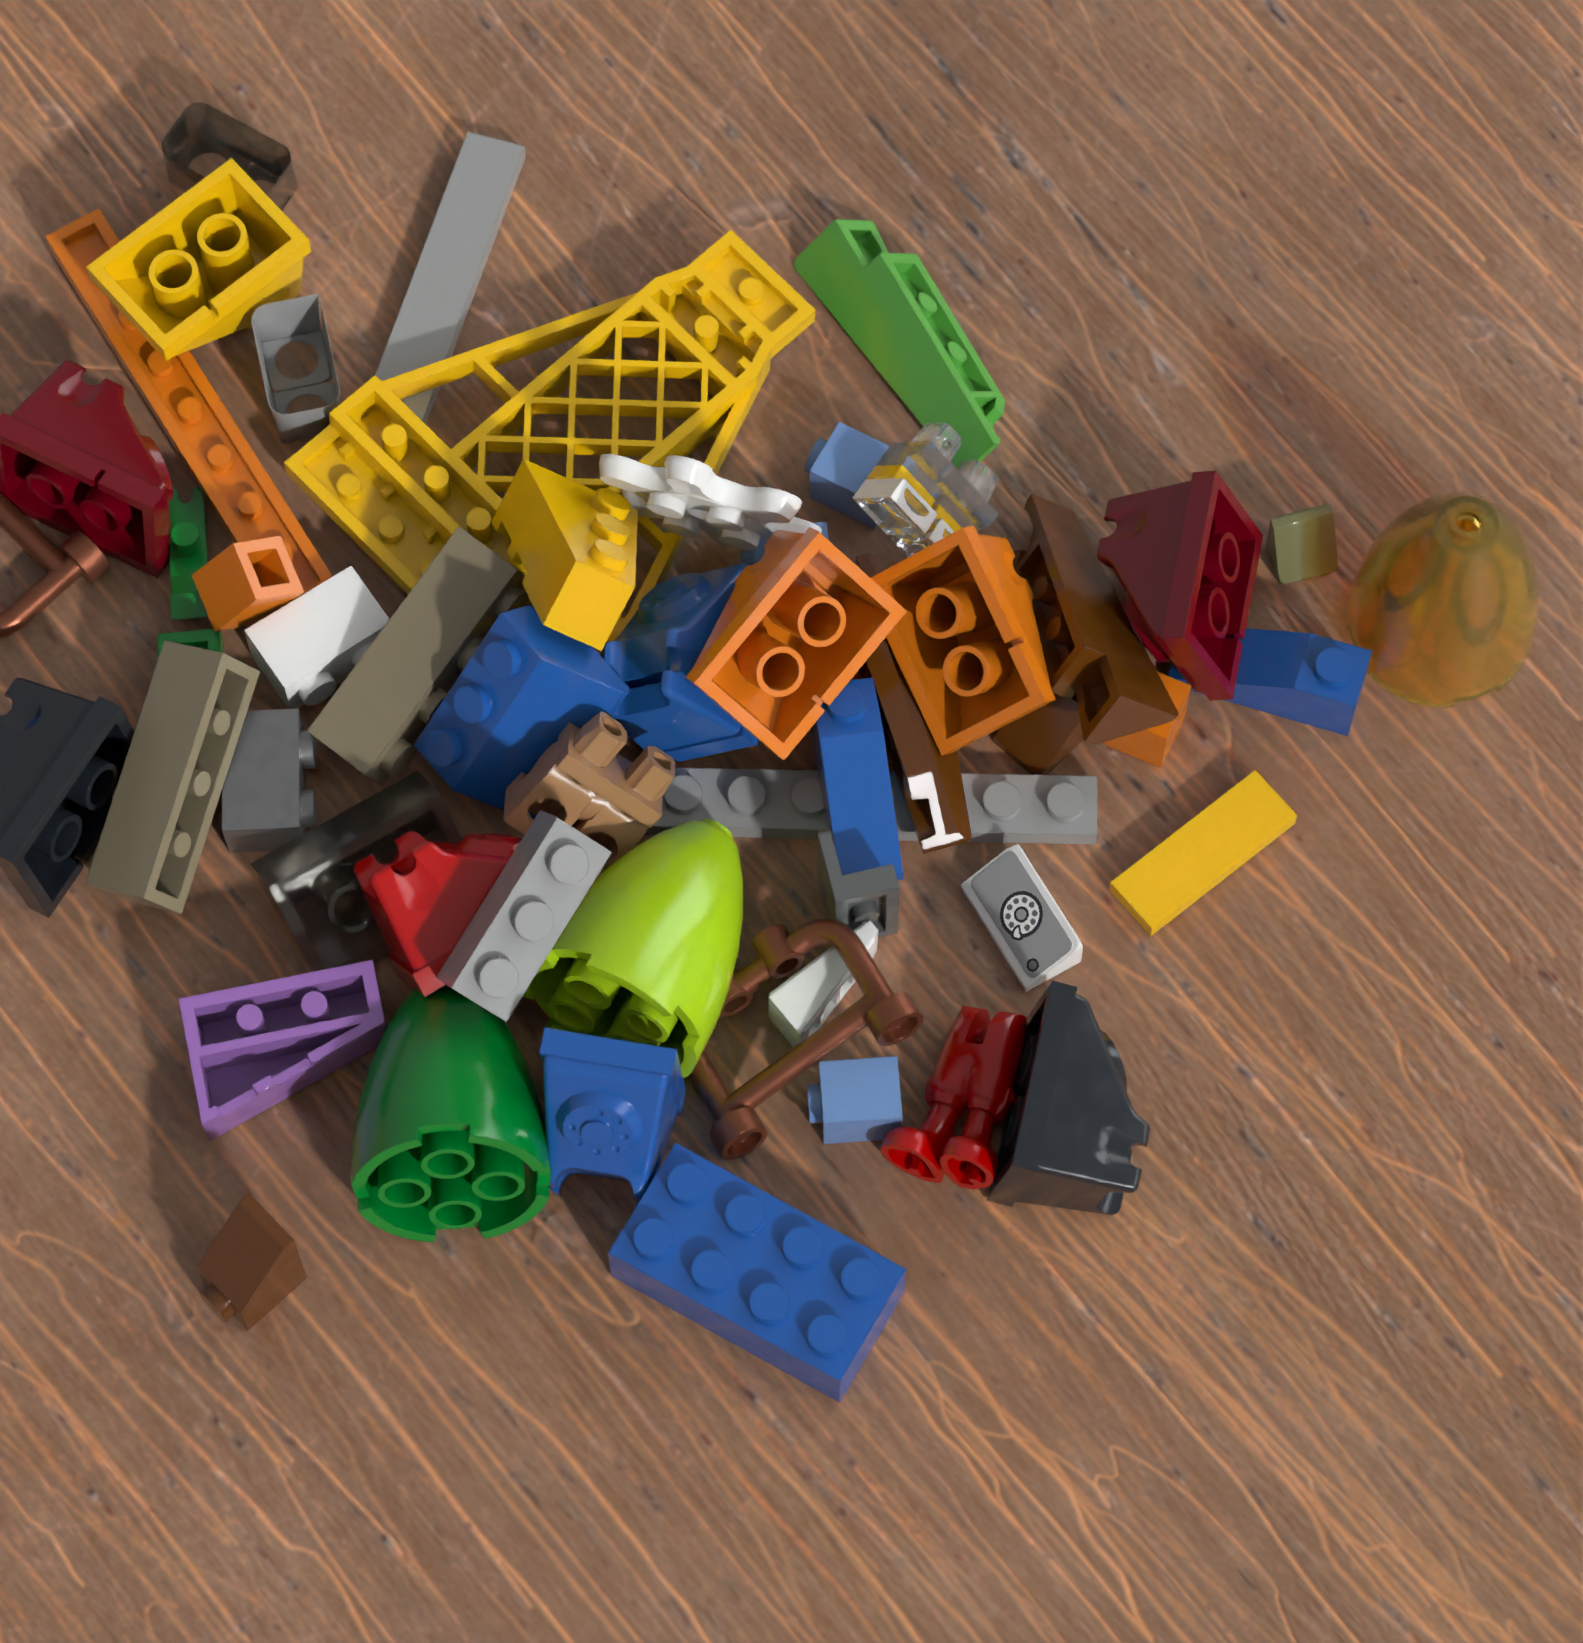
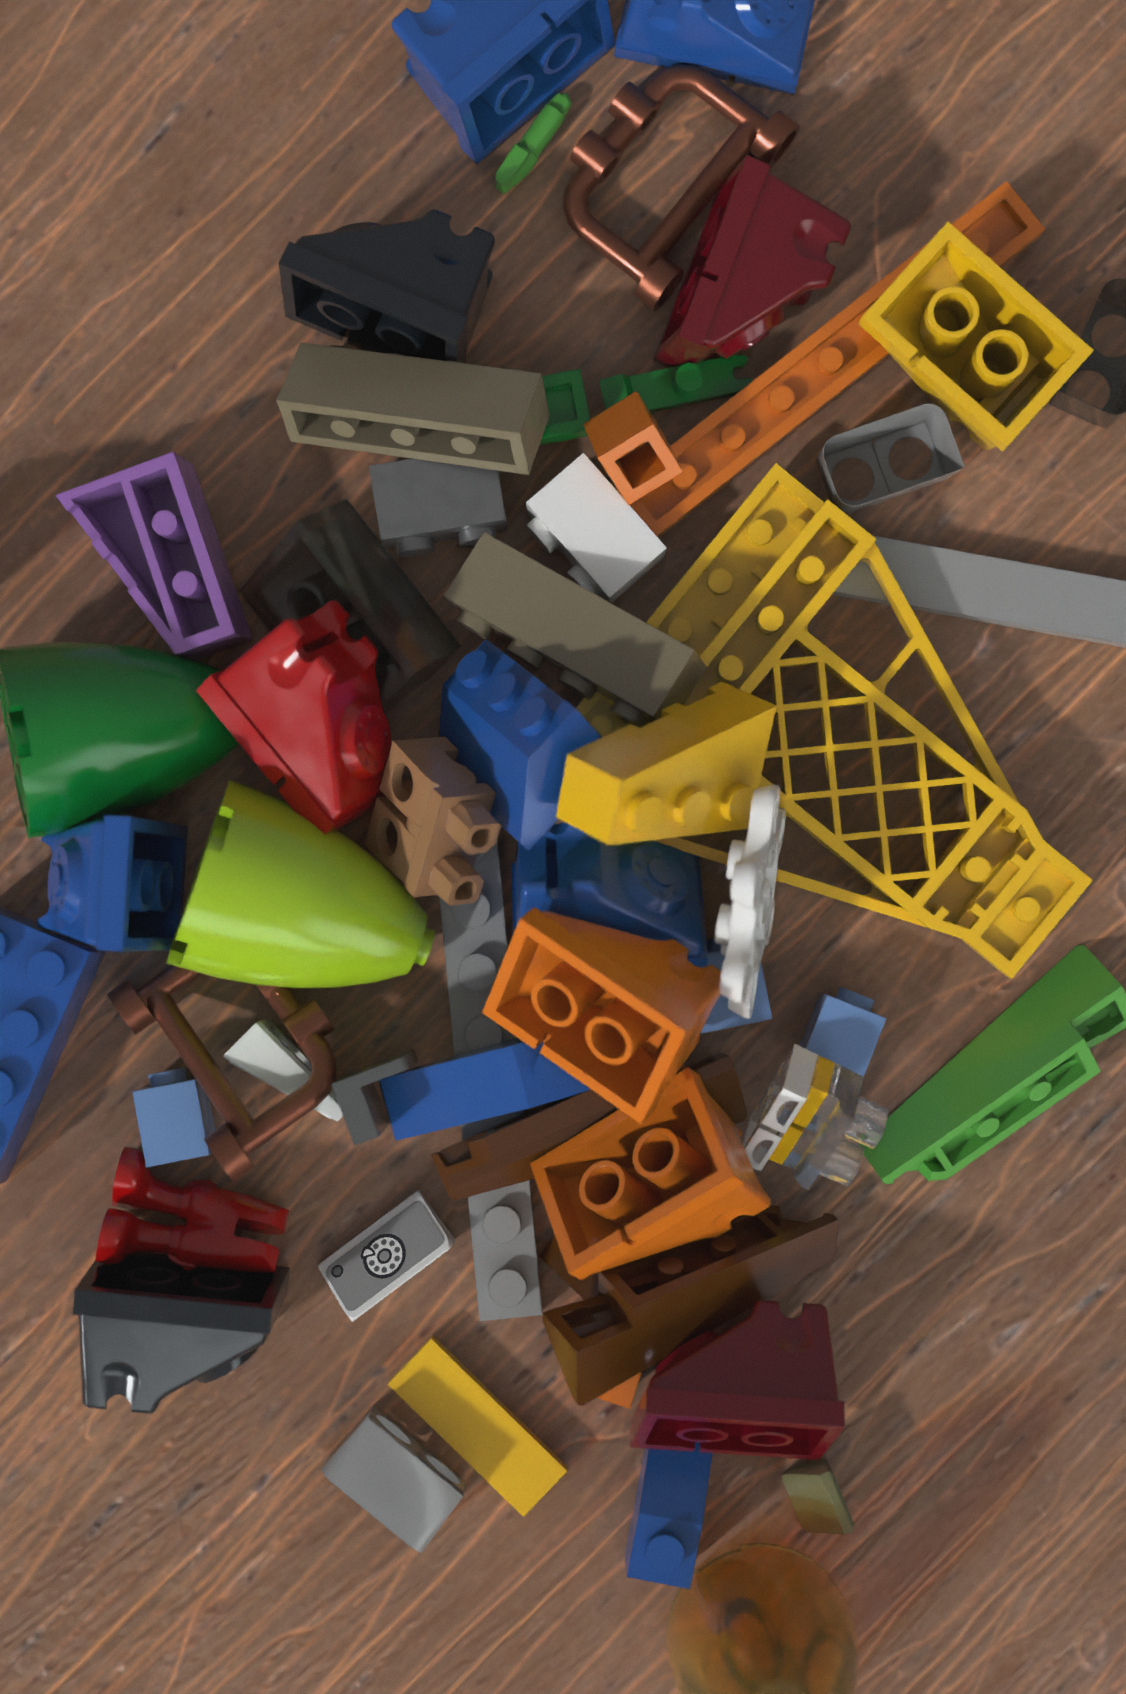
camera: 80 degrees right, 20 degrees up
(523, 915) = (267, 777): light grey brick -> none
(1245, 926) = (394, 1479): none -> light grey piece

